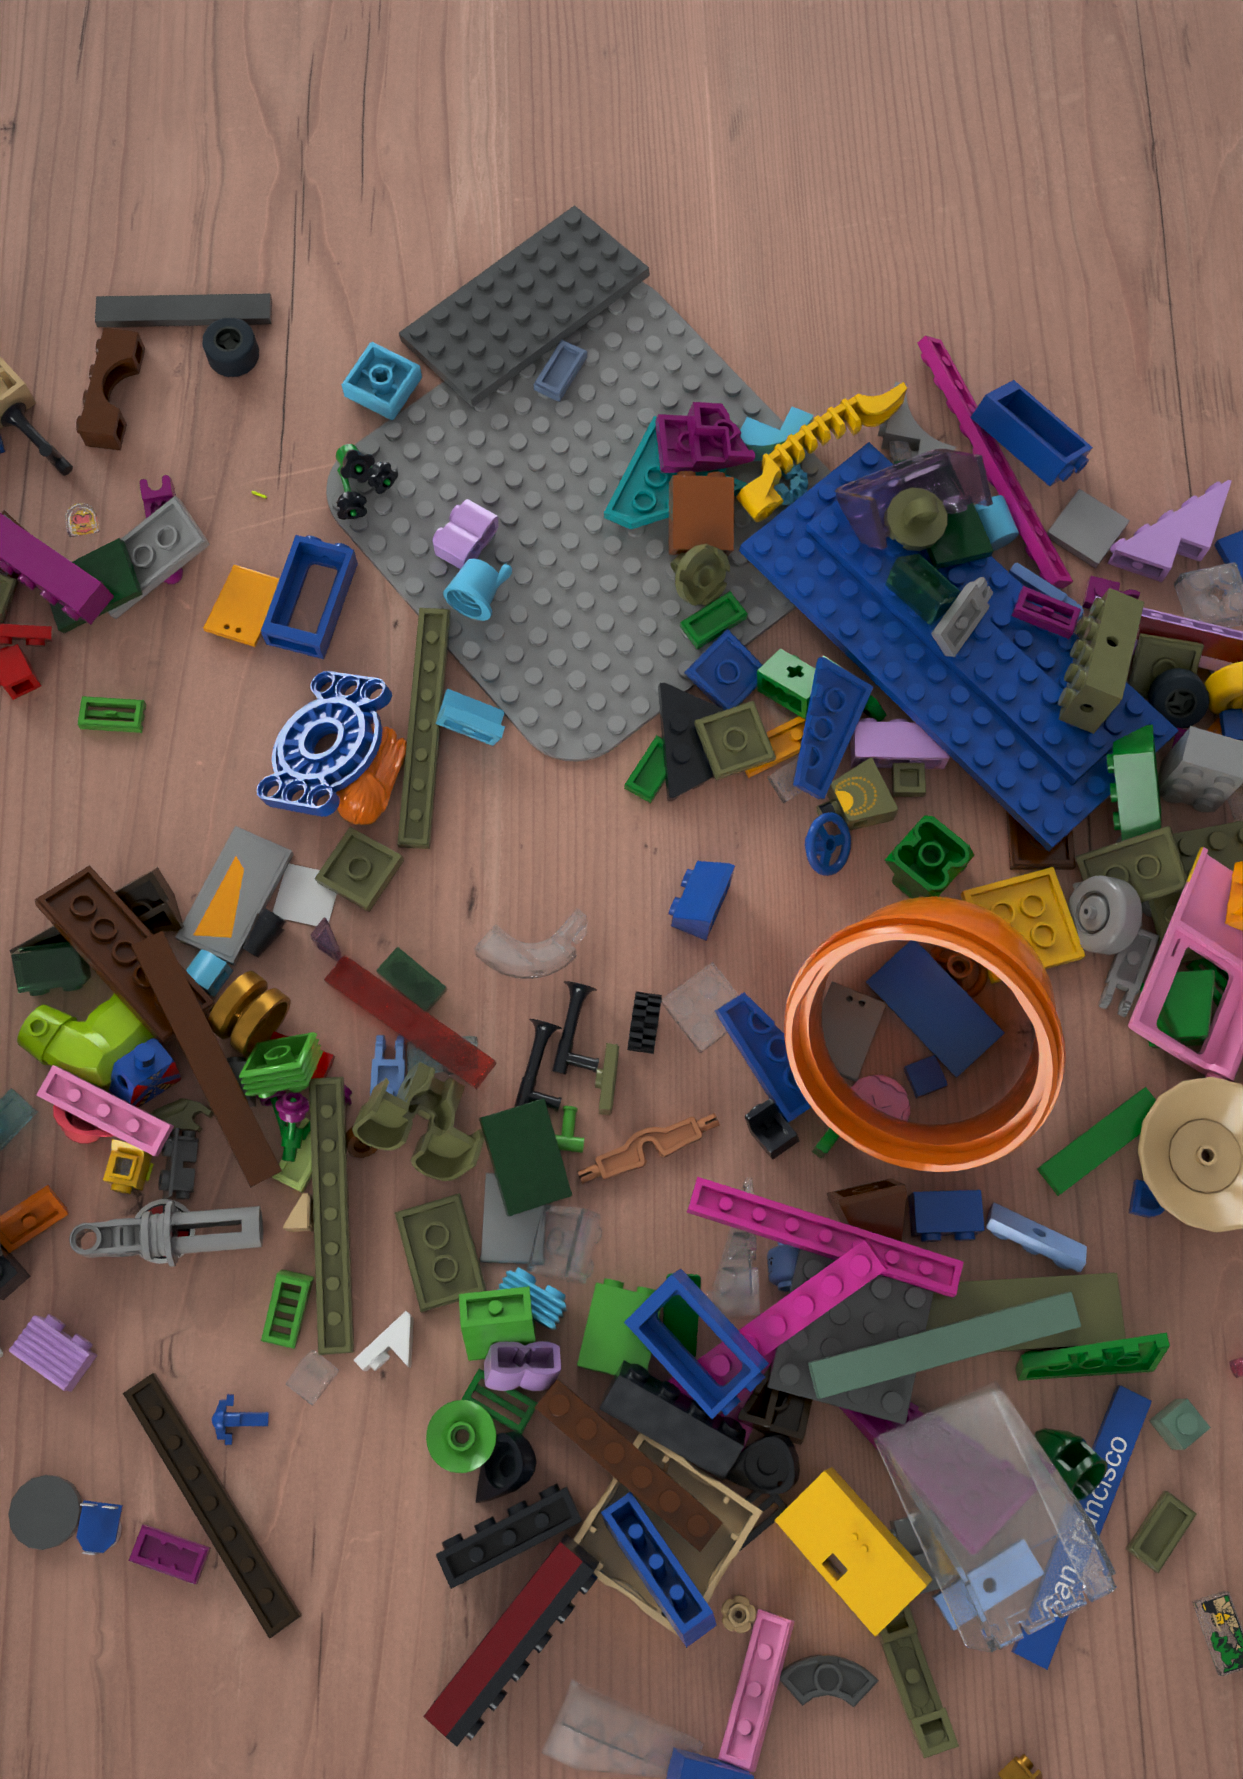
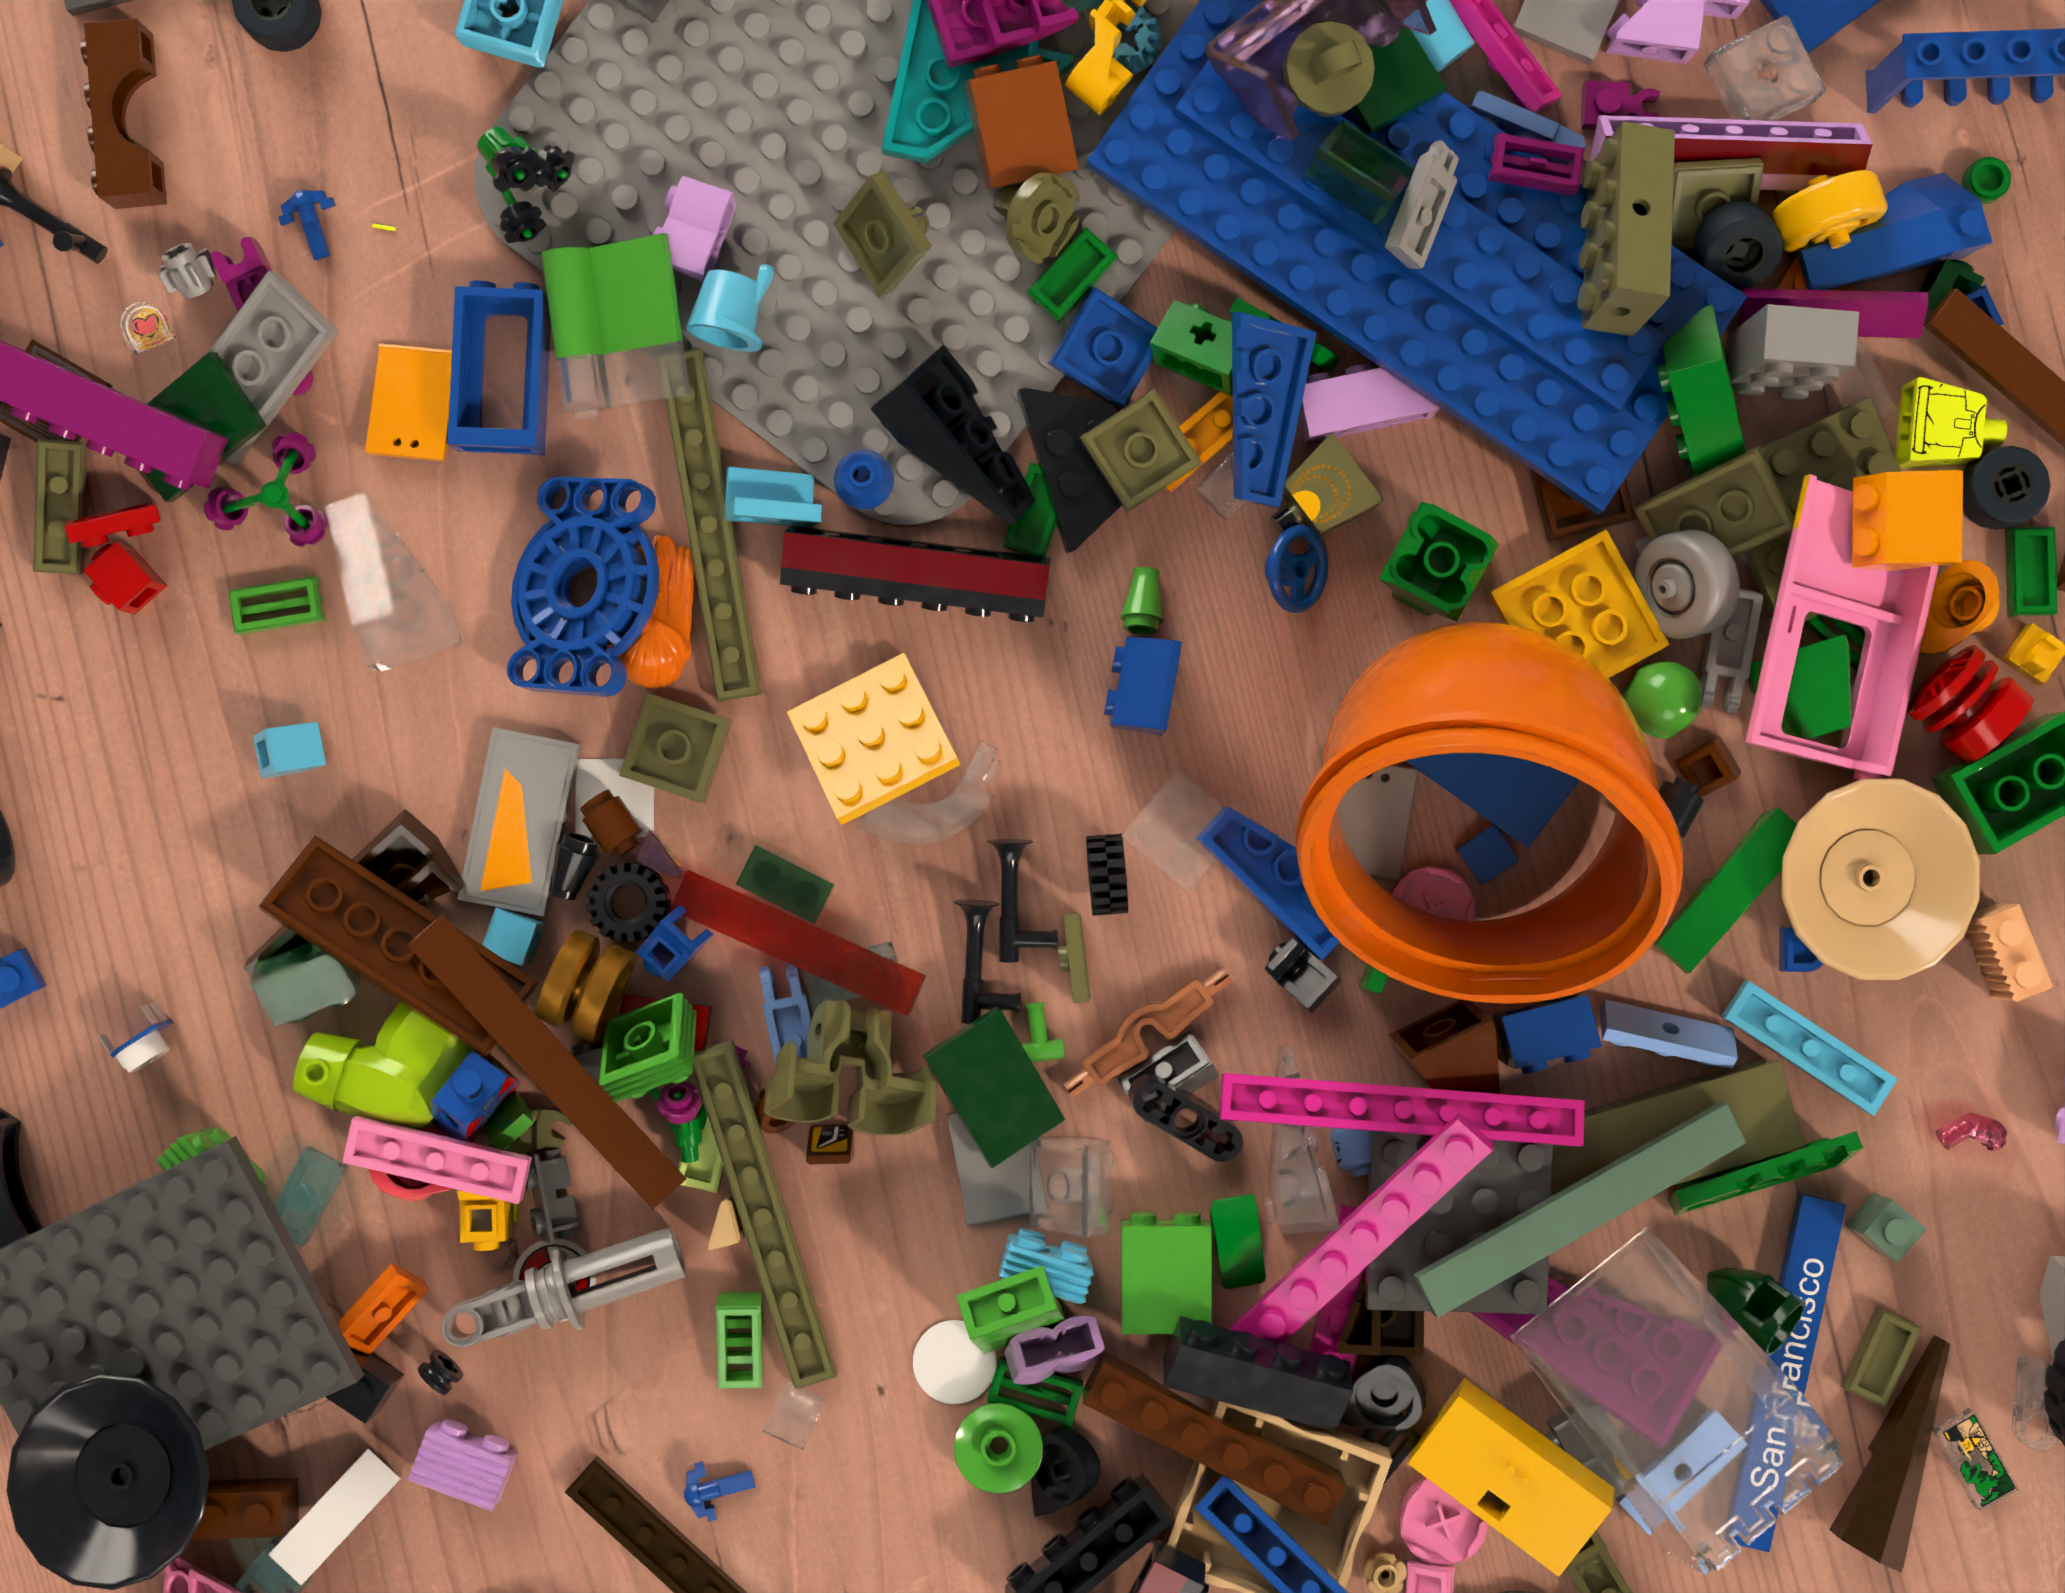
camera: 10 degrees left, 15 degrees up
(58, 1277) = (440, 1372): none -> black bush
(89, 809) = (289, 749): none -> medium azure brick
(121, 489) = (187, 270): none -> light grey gear
(146, 664) = (303, 523): none -> magenta plant
(165, 1102) = (509, 1122): none -> bright green tile
(190, 722) = (387, 592): none -> clear wedge
(210, 467) = (304, 202): none -> blue piece
(289, 949) = (601, 902): none -> black tyre
(299, 909) = (611, 823): none -> reddish brown brick
(328, 1006) = (668, 948): none -> blue window
(394, 1176) = (830, 1144): none -> slope
(395, 582) = (615, 324): none -> bright green door
(397, 1336) = (886, 1349): white slope -> none
(440, 1252) = (914, 1226): olive tile -> none
(443, 1365) = (951, 1365): none -> white sticker
(500, 891) = (873, 738): none -> yellow plate
(538, 718) = (856, 490): none -> blue cone
(558, 786) = (914, 572): none -> brick
(591, 562) = (883, 233): none -> olive tile
(600, 689) = (943, 426): none -> black wedge
(656, 1185) = (1179, 1063): none -> dark grey slope
(672, 1238) = (1176, 1101): none -> black beam
(681, 1362) = (1253, 1308): blue piece -> none
(714, 843) = (1143, 603): none -> bright green cone
(790, 1583) = (1438, 1525): none -> bright pink tile
(908, 780) = (1387, 447): olive plate -> none
(1076, 992) = (1664, 698): none -> bright green helmet
(1076, 1072) = (1682, 802): none -> black brick
(1099, 1051) = (1709, 766): none -> reddish brown slope
(1142, 1273) = (1809, 1047): none -> medium azure plate
(1148, 1644) = (1884, 1499): none -> dark brown wedge

